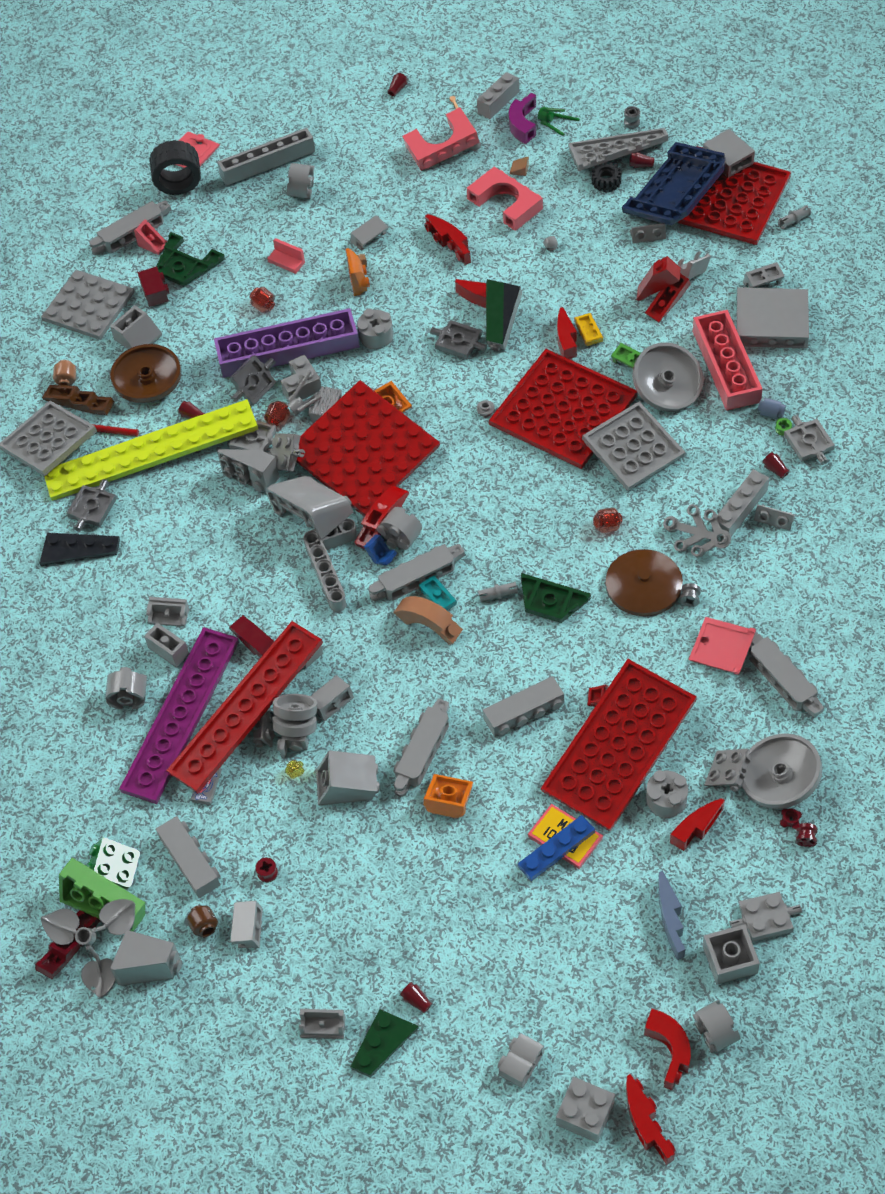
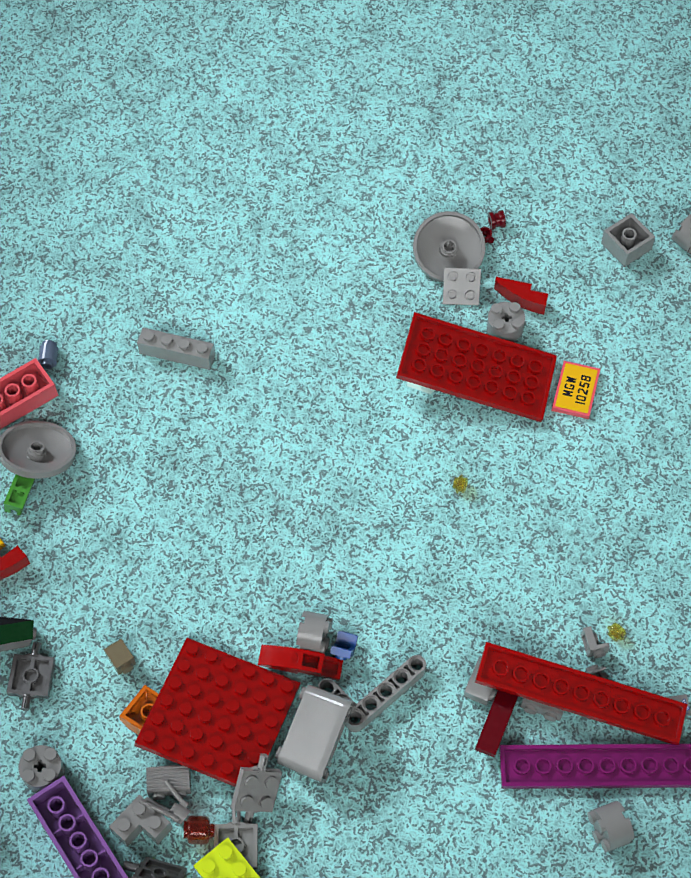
camera: 115 degrees left, 5 degrees up
(166, 644) = (540, 811): light grey brick -> none
(167, 611) = (496, 835): light grey hinge -> none
(249, 467) = (287, 810): light grey slope -> none
(294, 715) = (570, 644): light grey wheel -> none
(332, 697) = (529, 628): light grey hinge -> none
(346, 778) = (609, 579): light grey slope -> none
(409, 575) = (355, 603): light grey hinge -> none
(422, 747) = (545, 527): light grey hinge -> none
(423, 611) = (406, 573): nougat arch -> none
(437, 593) = (372, 577): teal plate -> none
(445, 397) = (120, 657): none -> dark tan brick
(447, 796) = (583, 488): orange slope -> none
(485, 411) = (120, 620): light grey plate -> none
(497, 591) = (348, 524): light grey pin -> none
(499, 693) = (460, 484): none -> clear yellow plate
(523, 706) = (467, 458): light grey brick -> none
(551, 599) = (339, 477): dark green wing -> none
(556, 848) = (594, 388): blue plate -> none
(559, 405) = (98, 540): red plate -> none
(595, 694) = (427, 406): red slope -> none
(607, 520) = (231, 454): clear red head -> none
(633, 446) = (133, 456): light grey plate -> none
(644, 582) = (289, 407): reddish brown dish -> none
(670, 909) = (610, 293): sand blue slope -> none
(690, 594) = (292, 362): flat silver wheel -> none
(699, 532) = (222, 371): light grey plant -> none
(722, 645) = (339, 318): coral container -> none
(766, 916) = (579, 231): light grey plate -> none
(774, 464) = (116, 336): dark red cone -> none
(774, 517) = (178, 315): light grey hinge -> none
(782, 421) = (61, 339): bright green bush -> none
(784, 676) = (349, 273): light grey hinge -> none
(809, 440) = (77, 316): light grey plate -> none

